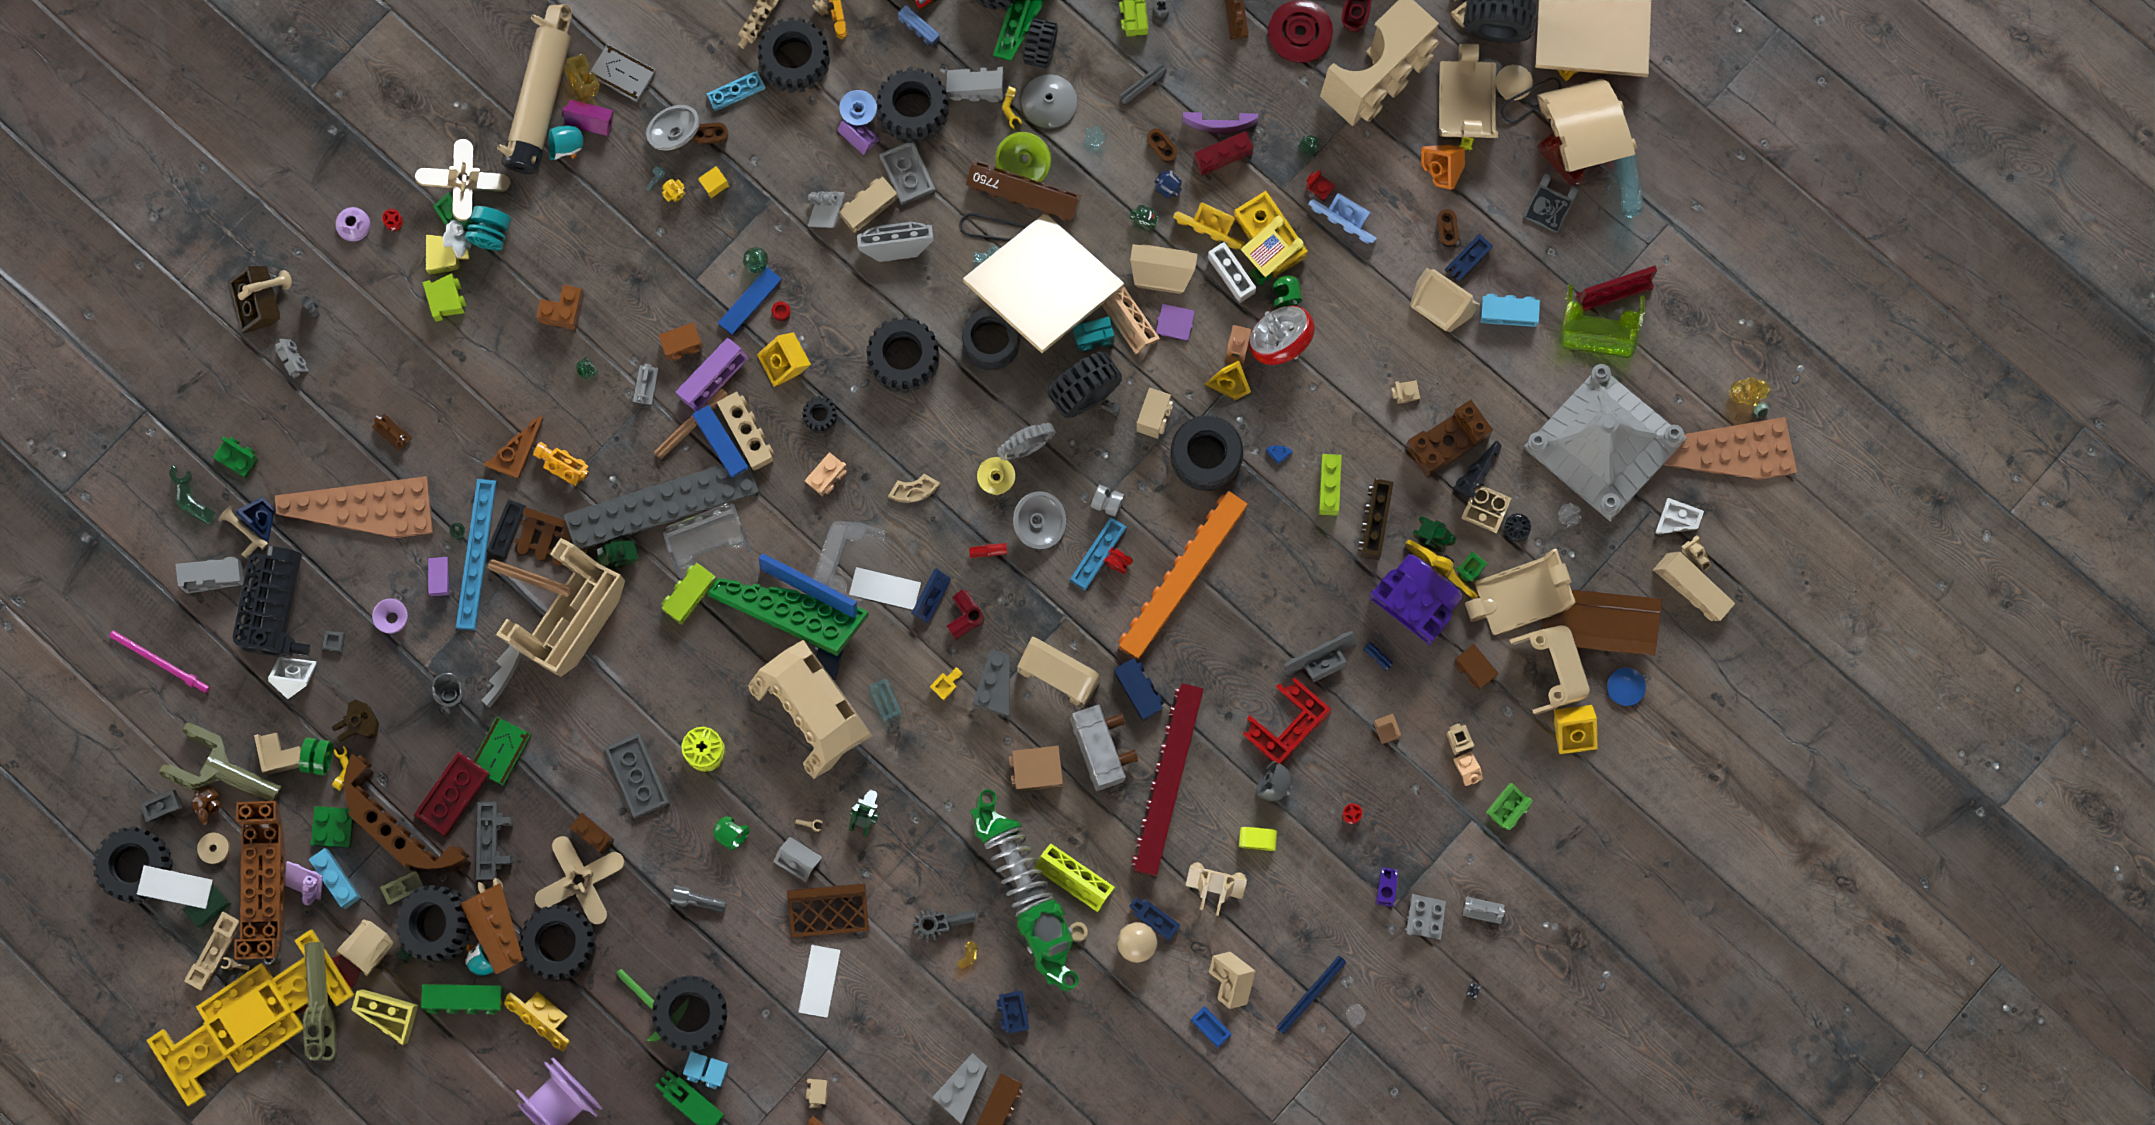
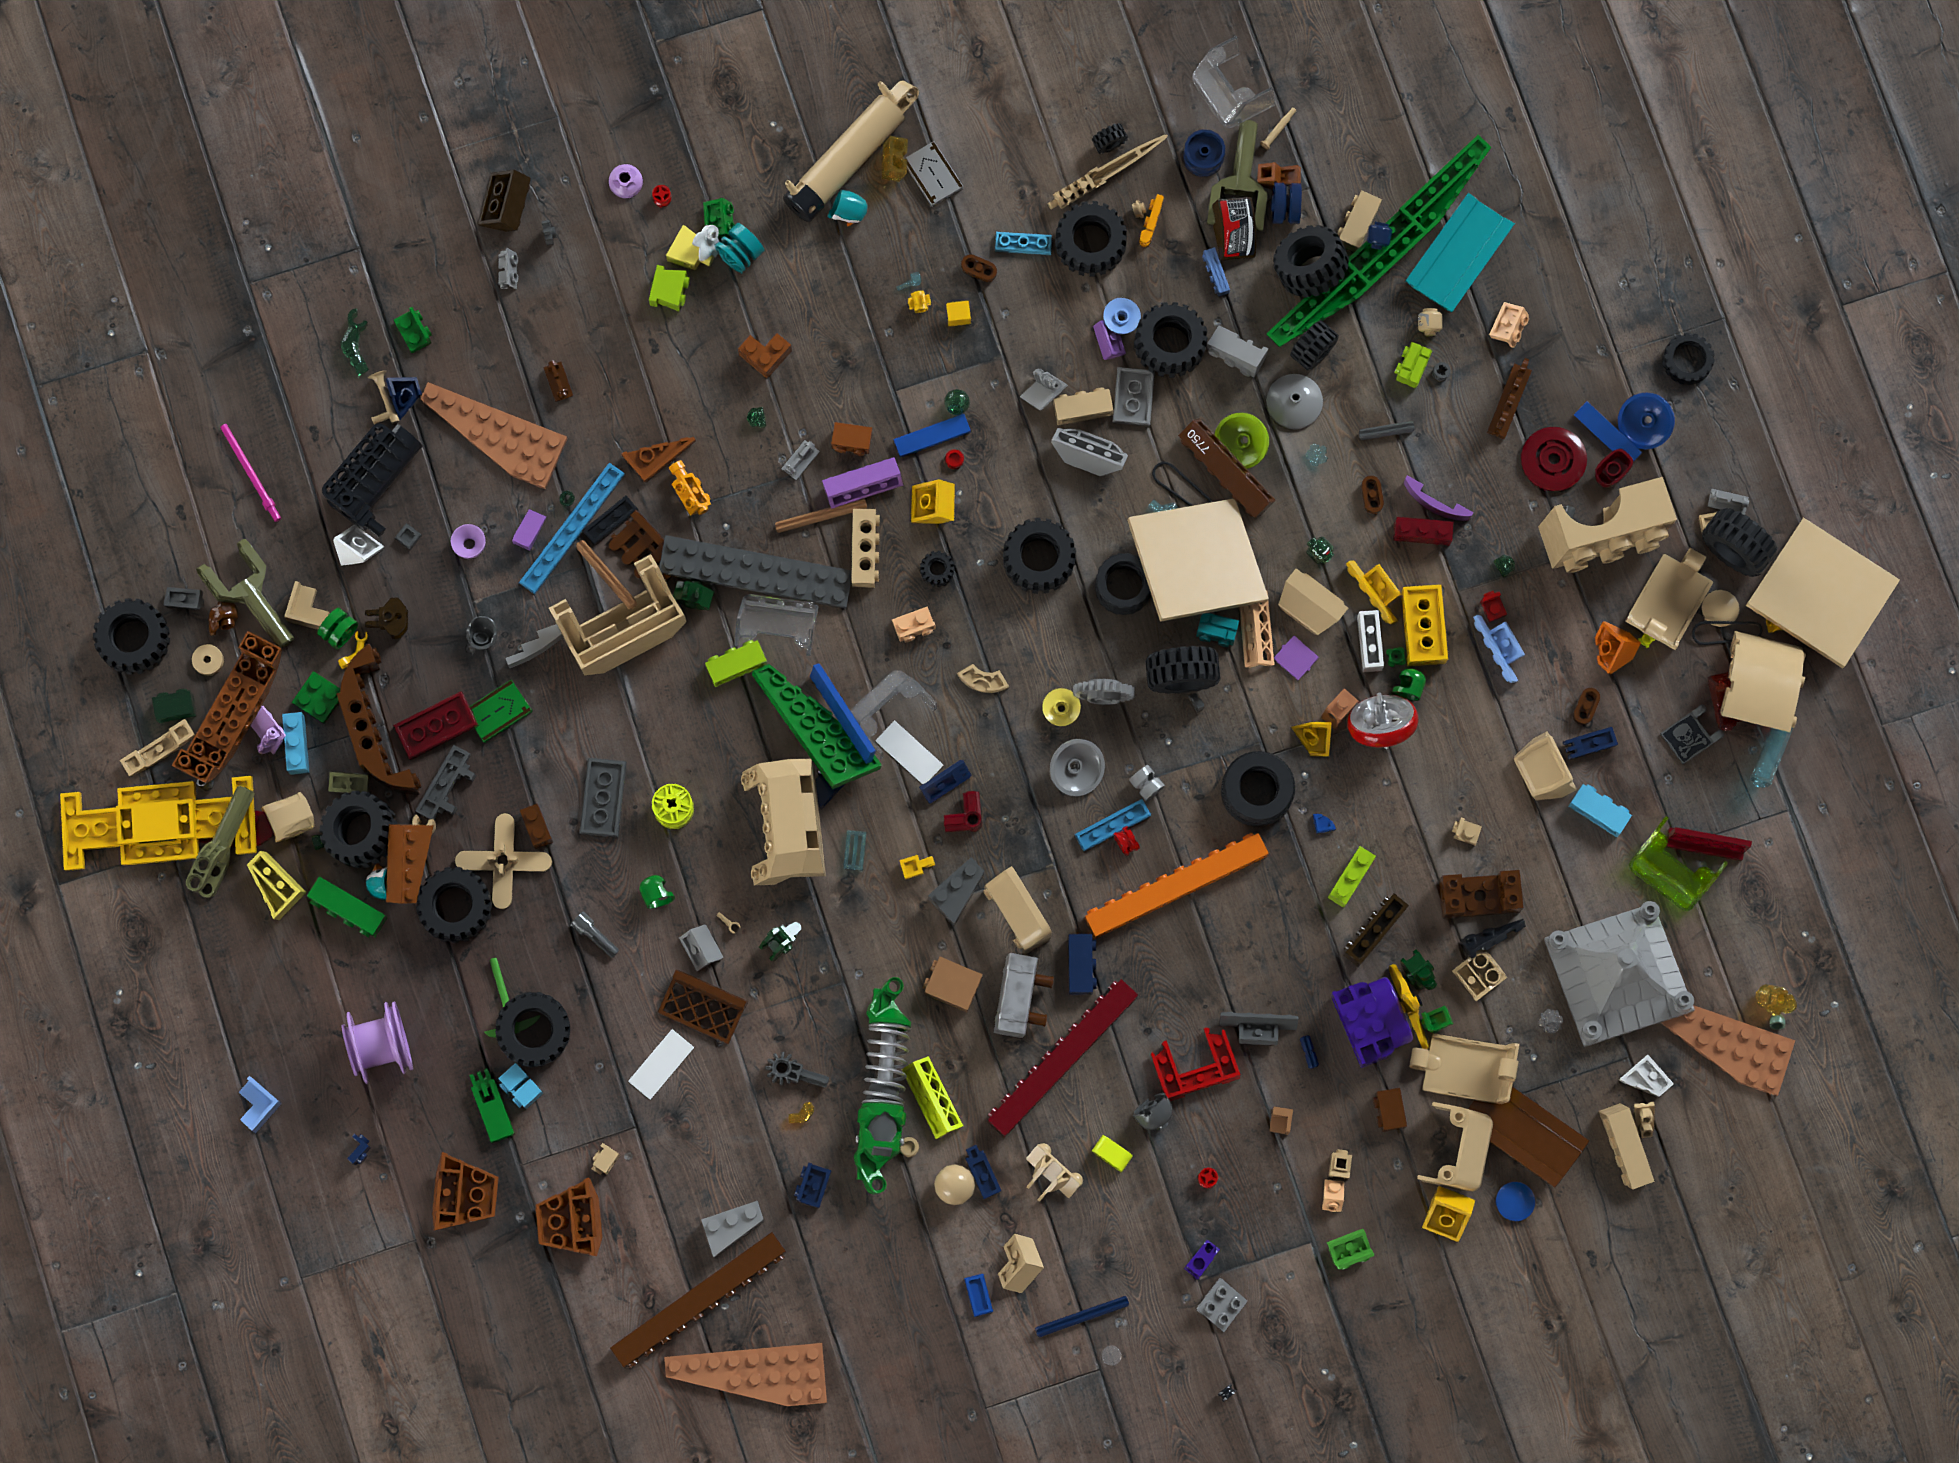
camera: 25 degrees right, 0 degrees up
(174, 887) = (155, 675): white sticker -> none
(209, 574) = (334, 420): light grey wedge -> none
(232, 964) = (168, 768): tan hand -> none
(283, 279) = (539, 197): tan piece -> none
(462, 189) = (736, 202): piece -> none
(541, 1016) = (405, 960): yellow bracket -> none
(588, 117) = (880, 197): magenta brick -> none
(673, 127) = (949, 246): light grey dish -> none
(720, 441) = (837, 544): blue tile -> none
(988, 550) = (1017, 769): red axle -> none
(1006, 107) = (1262, 377): yellow arm -> none
(1153, 413) = (1230, 728): tan brick -> none
(1168, 184) = (1358, 532): dark blue head -> none
(1268, 249) = (1413, 638): light yellow flag -> none
(1483, 910) = (1276, 1327): light grey hinge -> none
(1517, 527) = (1497, 1006): black wheel -> none

